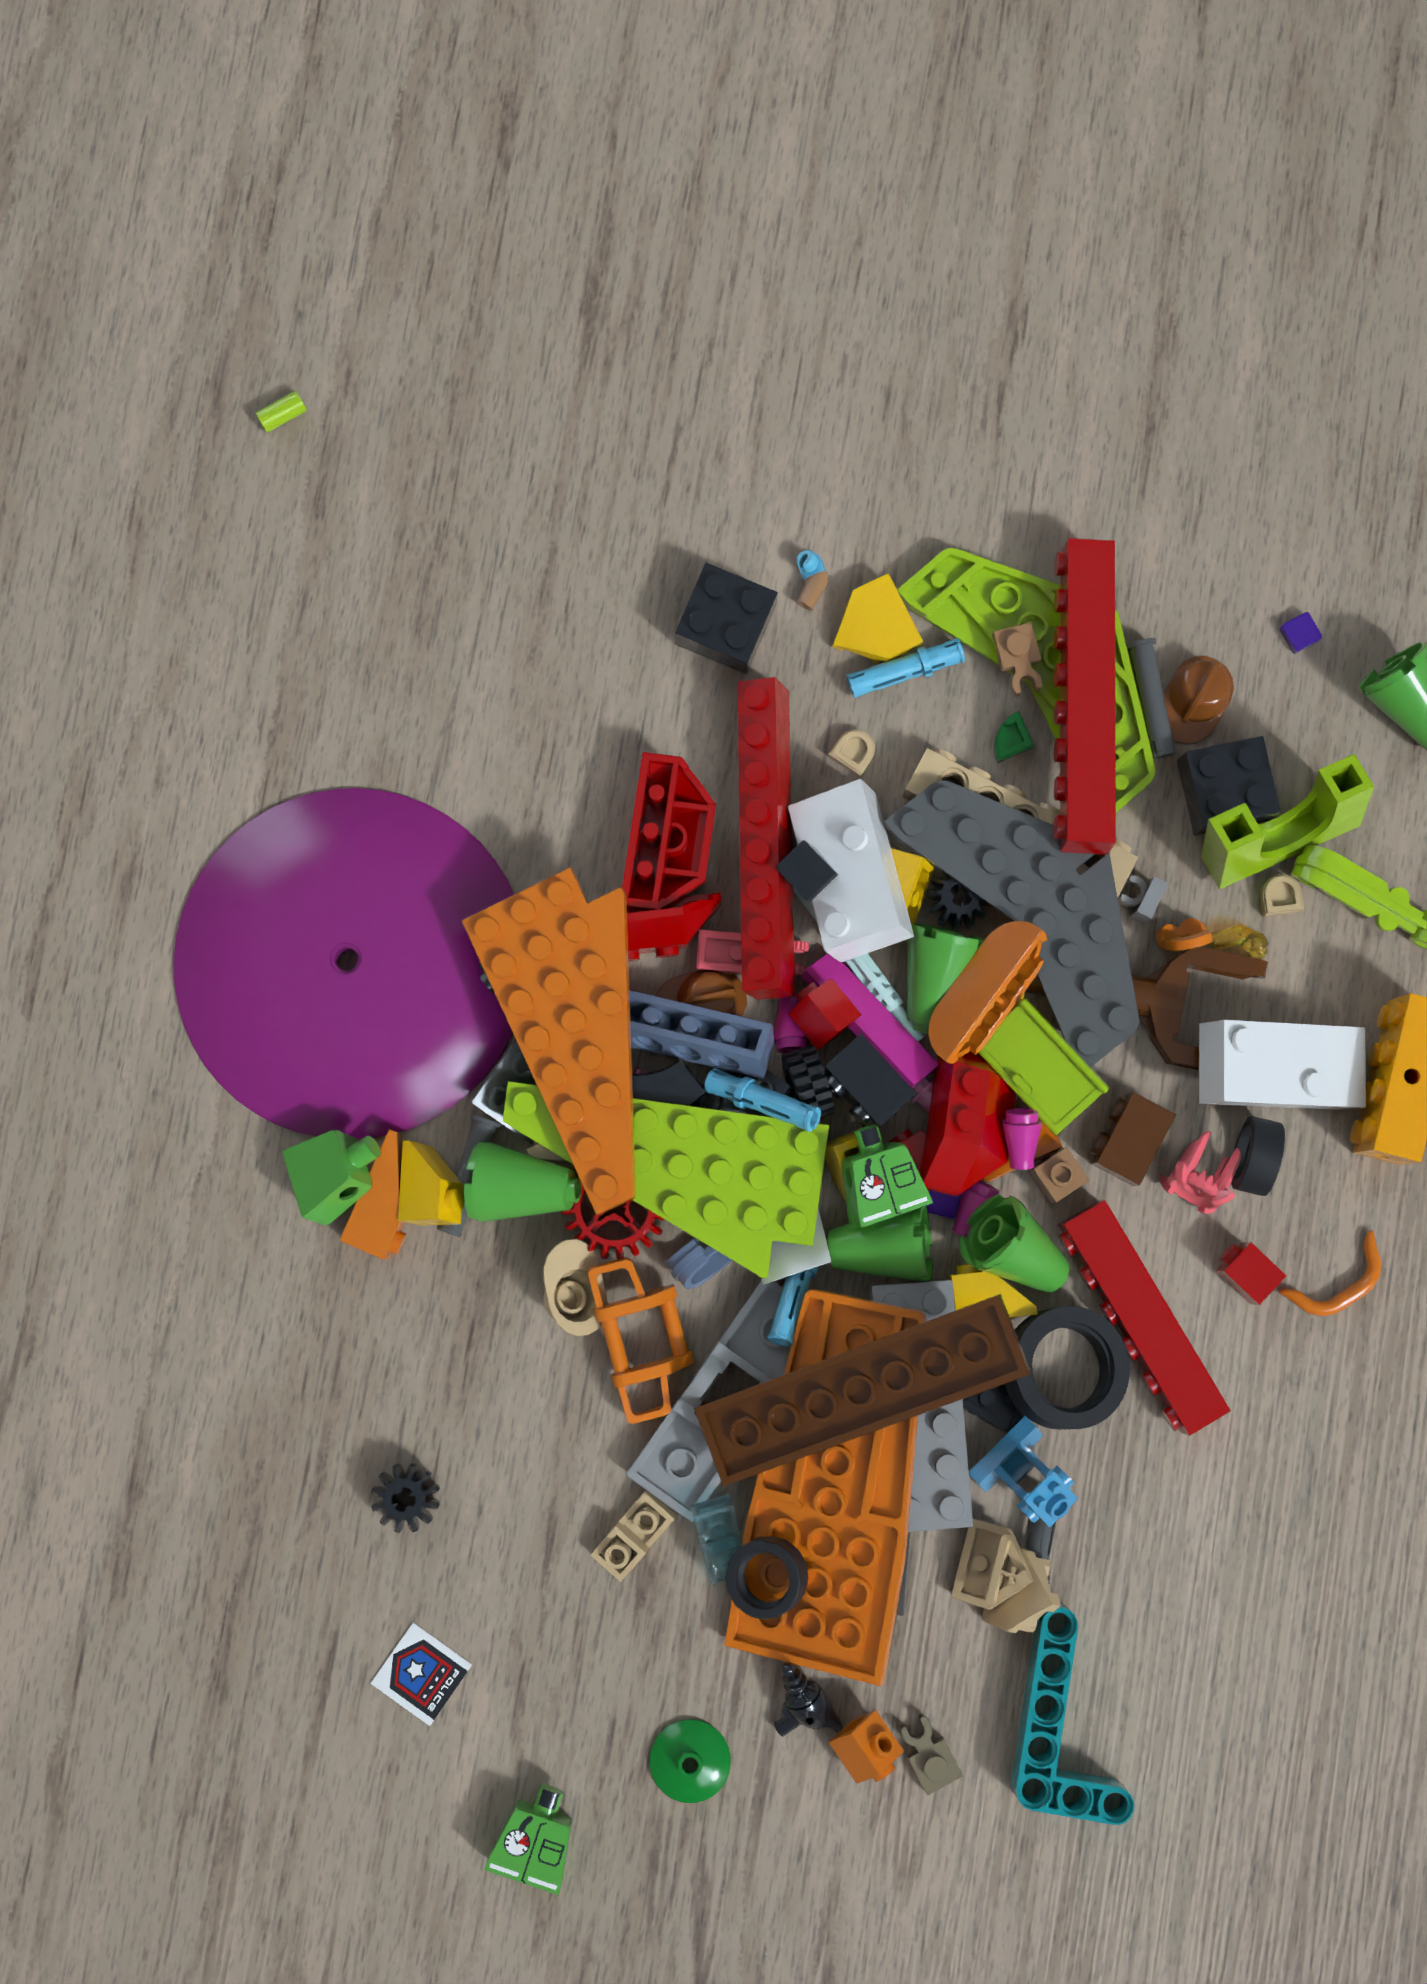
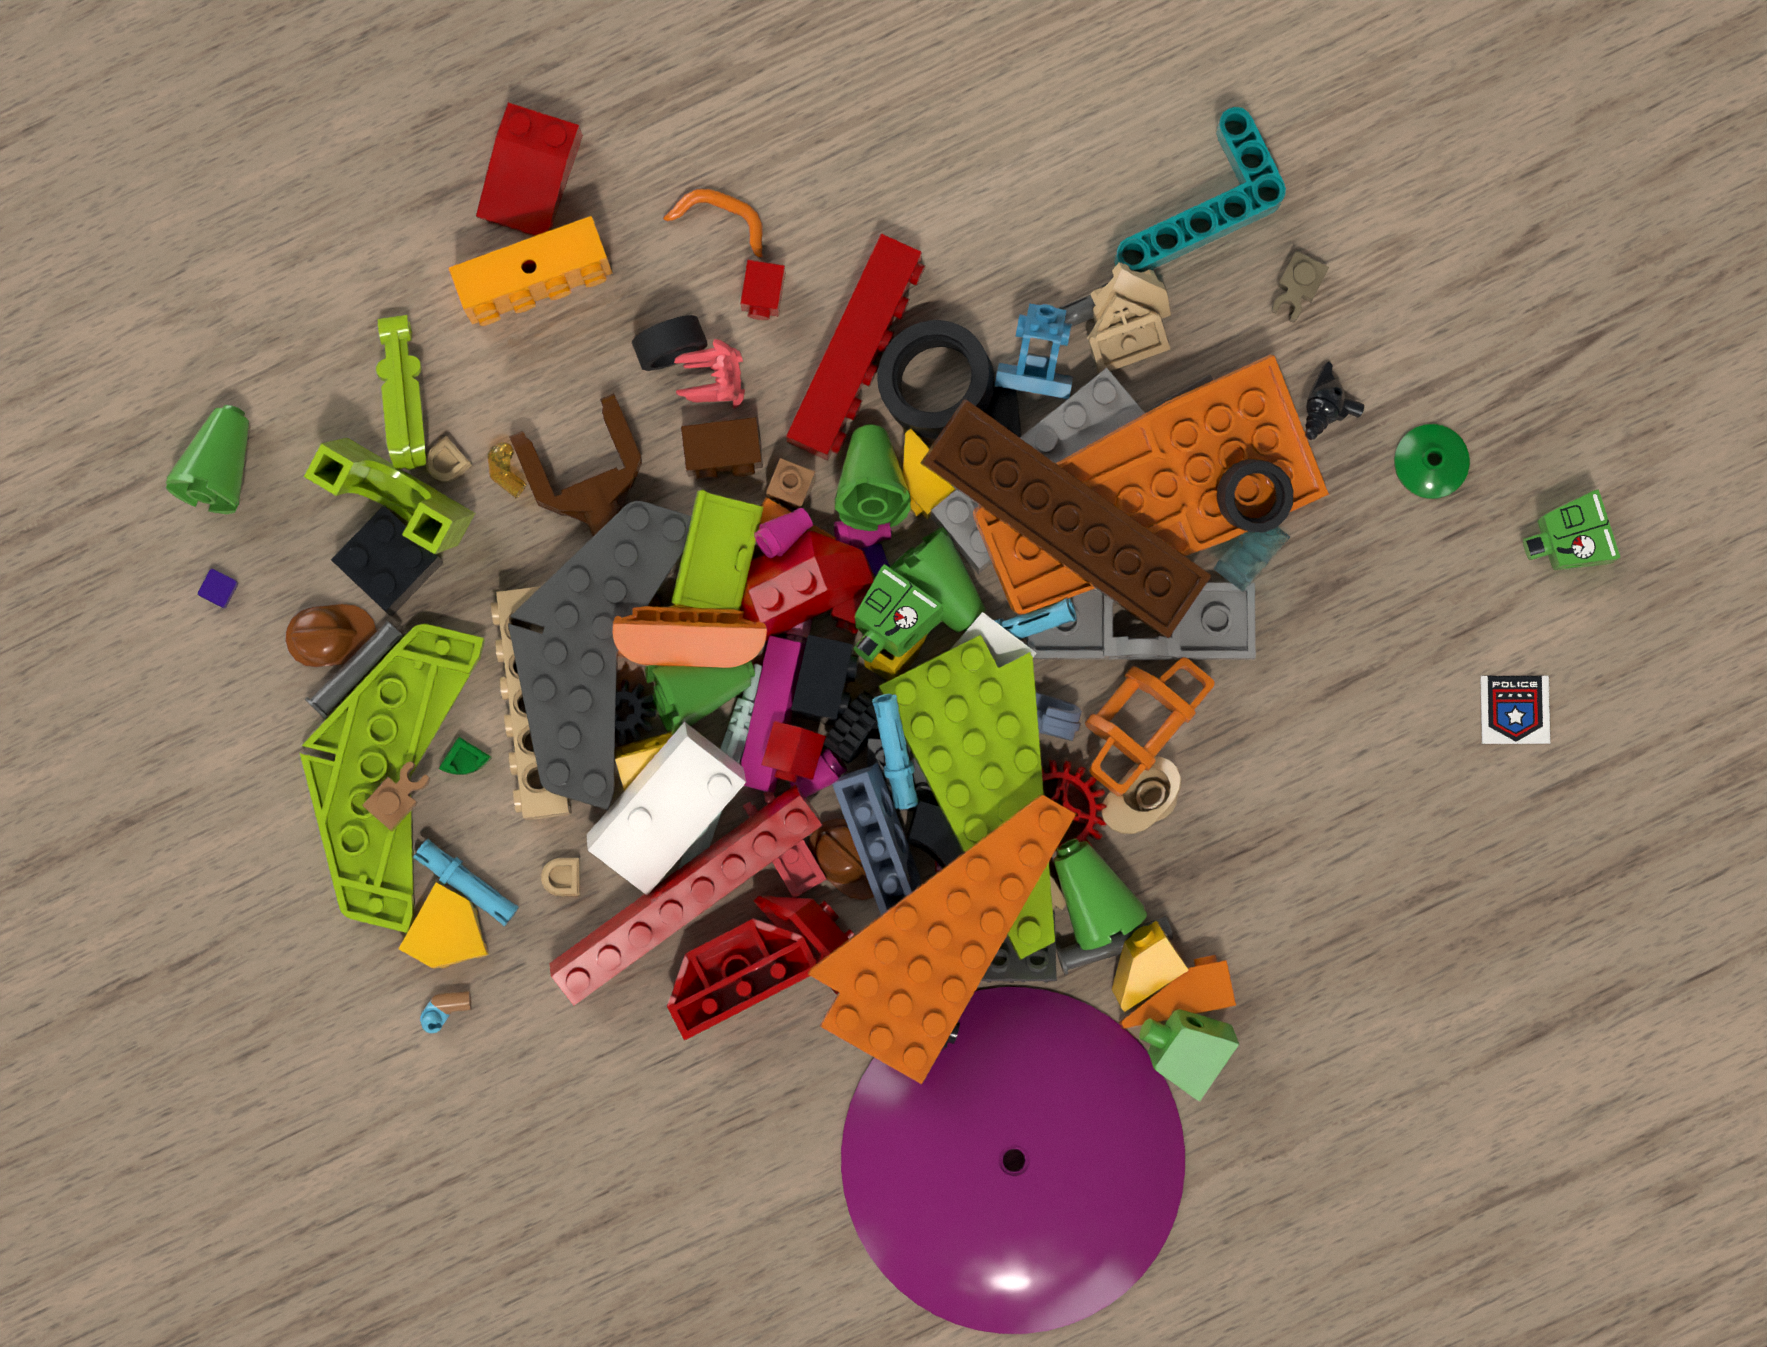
camera: 120 degrees left, 0 degrees up
(414, 1509) = (1389, 827): black gear -> none
(633, 1535) = (1296, 621): tan slope -> none
(726, 618) = (525, 1053): black brick -> none
(806, 870) = (692, 839): black slope -> none
(867, 1747) = (1326, 335): orange brick -> none
(1086, 697) = (394, 719): red brick -> none
(1147, 899) = (523, 563): light grey tile -> none
(1188, 935) = (533, 511): orange piece -> none
(1282, 1065) = (586, 370): white brick -> none

